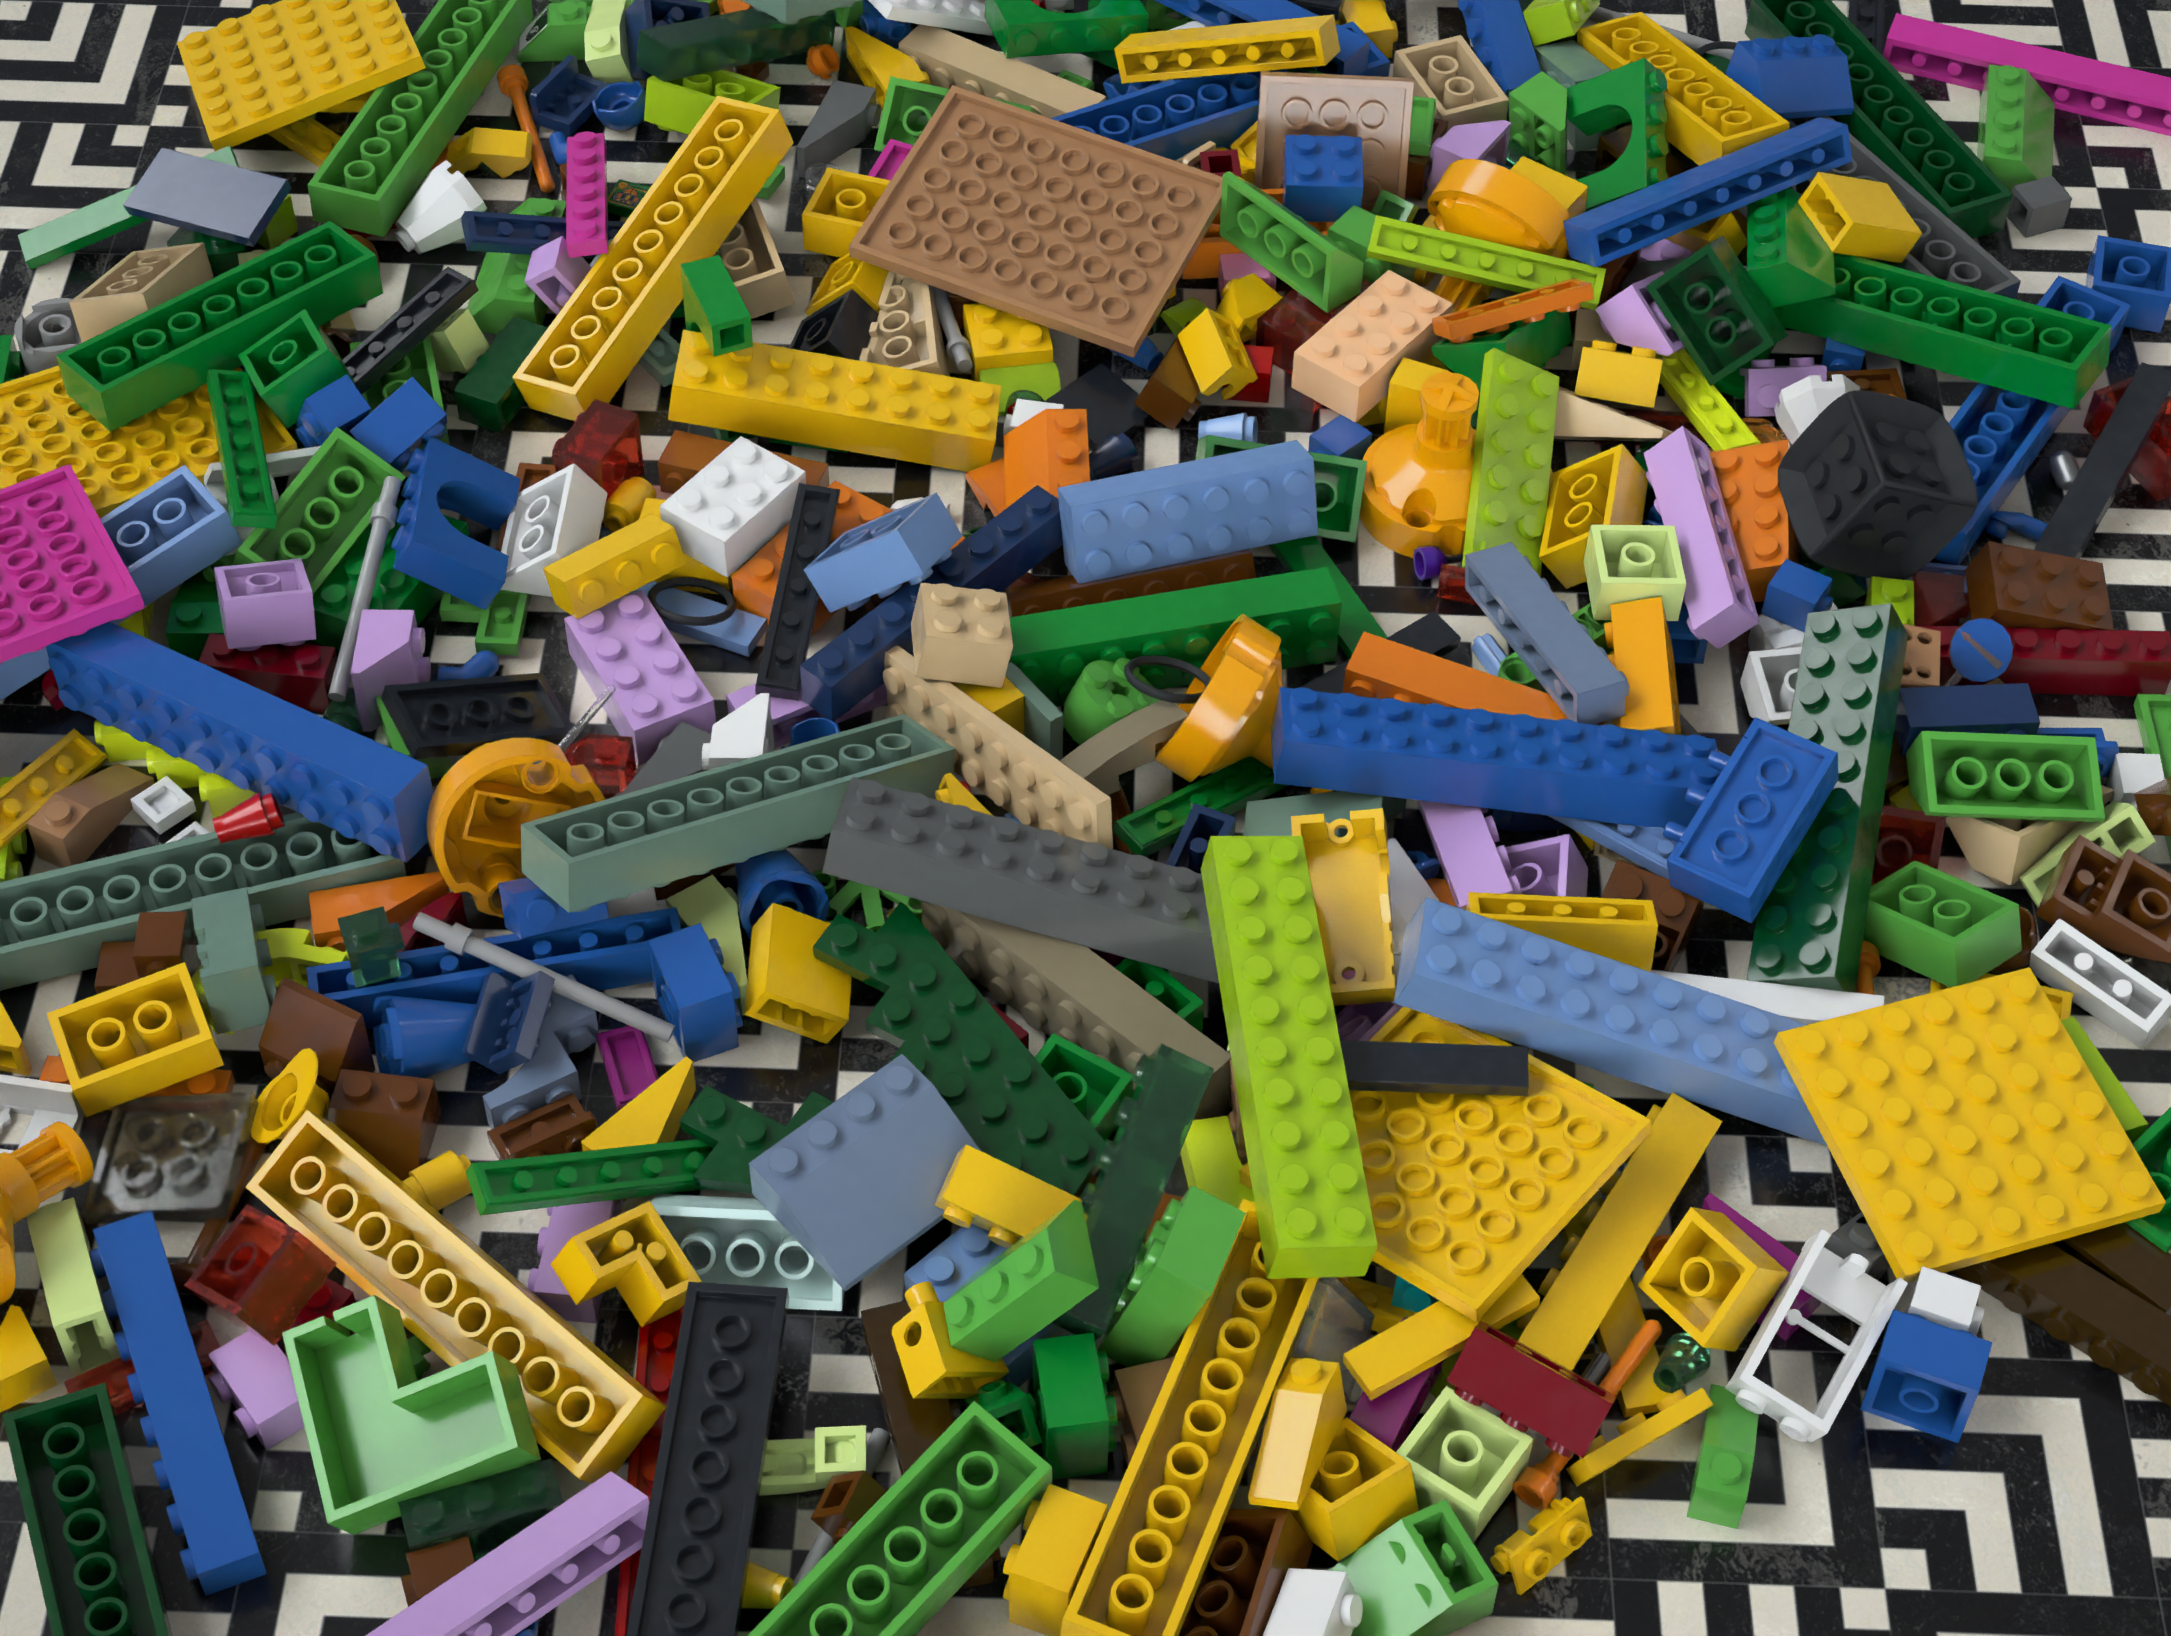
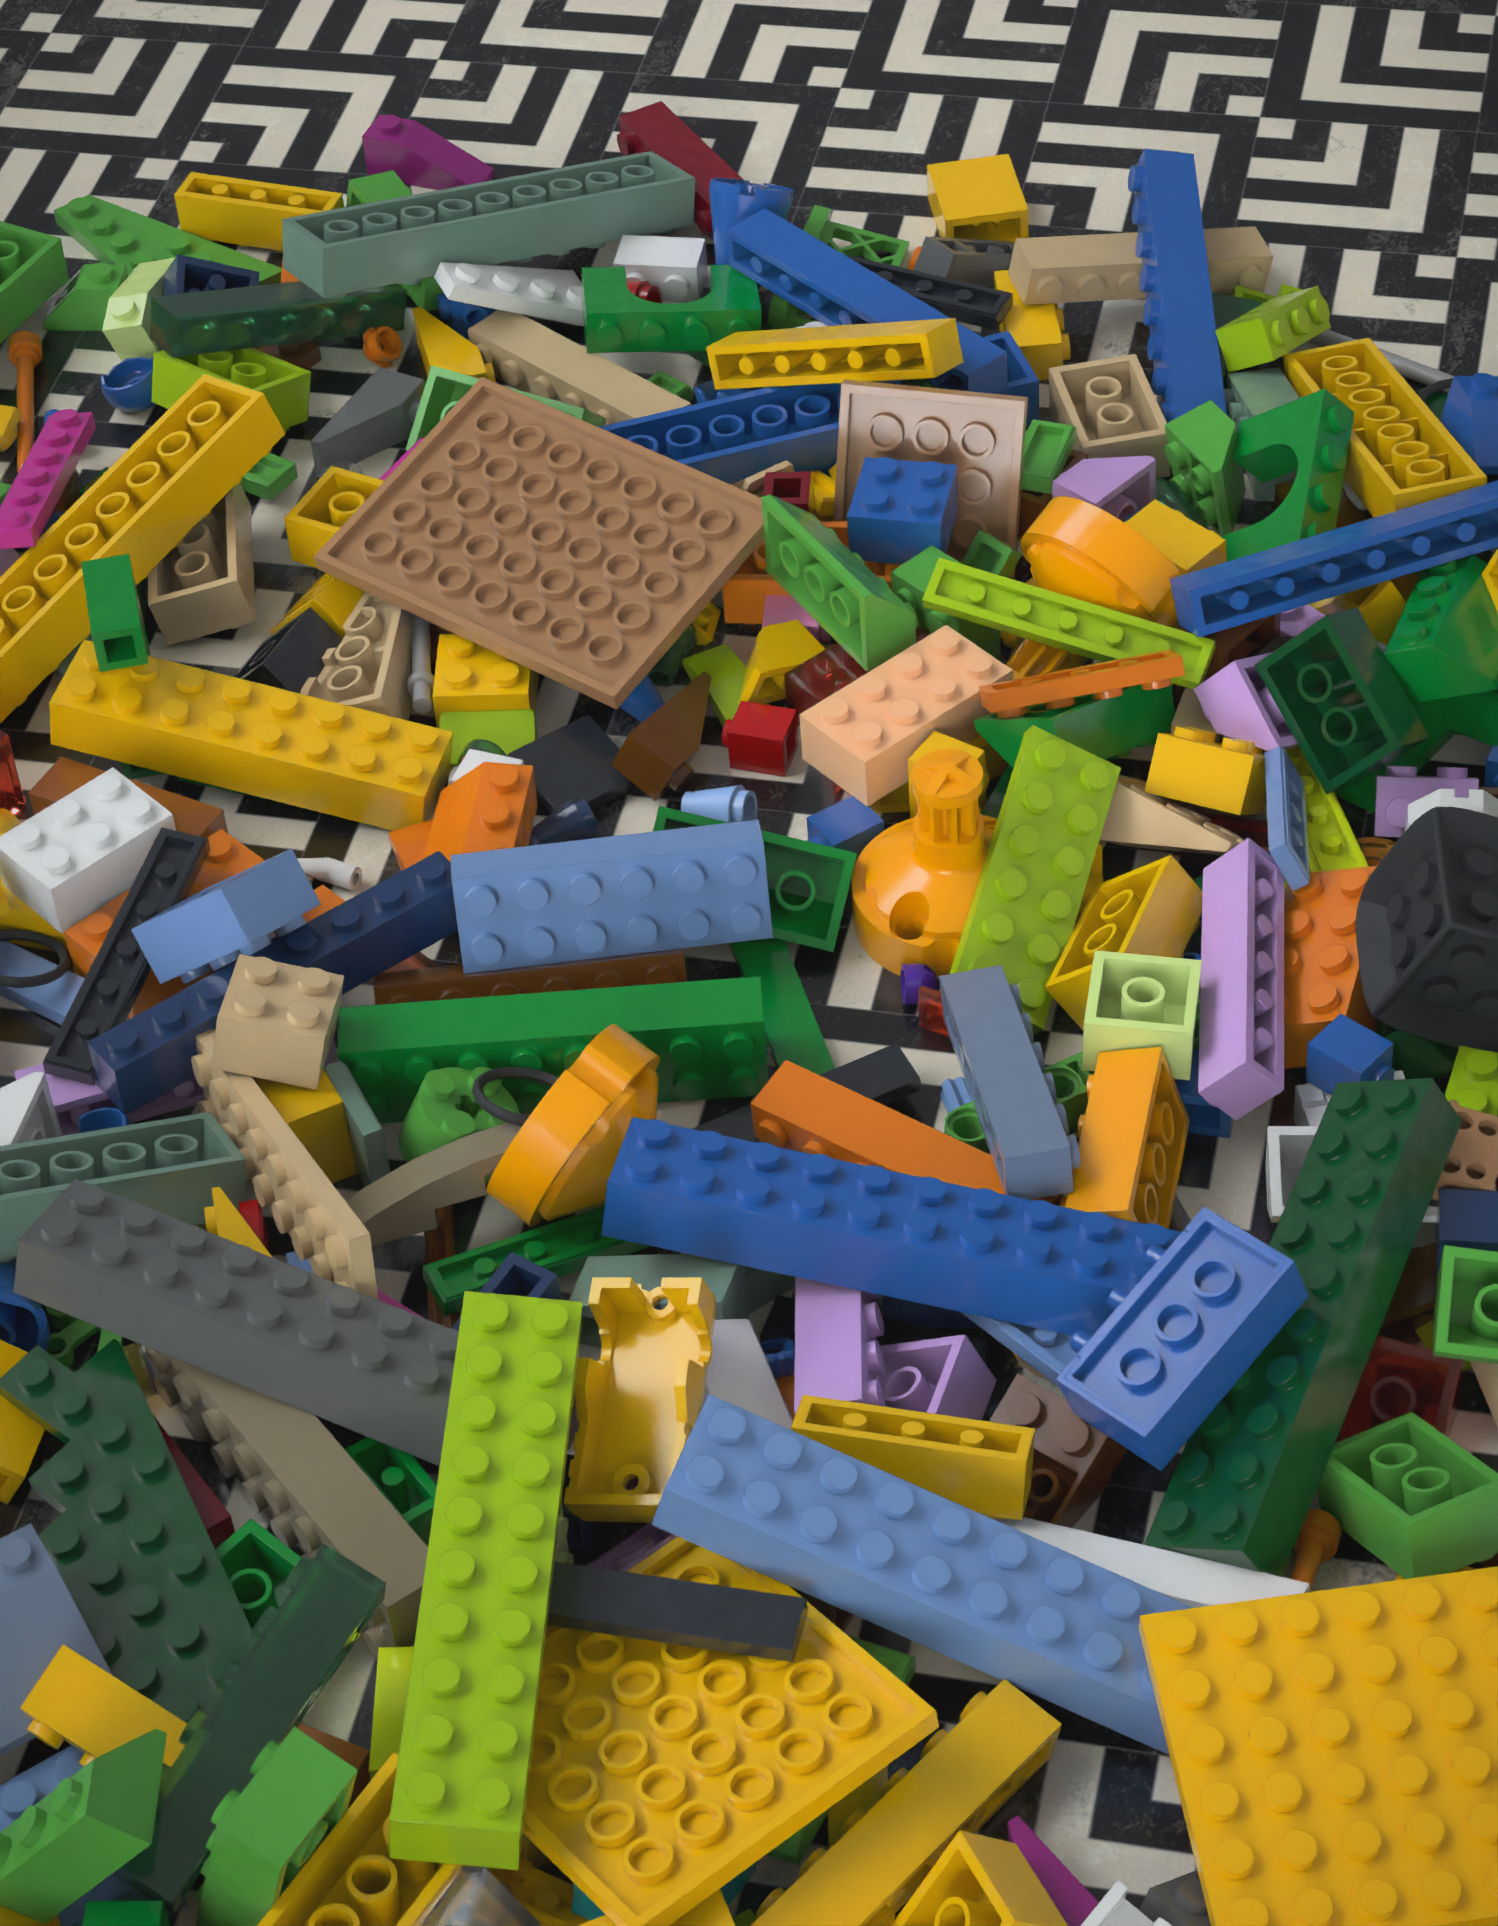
camera: 15 degrees right, 5 degrees down
(564, 98) = (71, 370): dark blue bracket -> none
(1216, 354) = (720, 712): yellow hinge -> none
(1697, 407) = (1287, 818): none -> medium blue tile

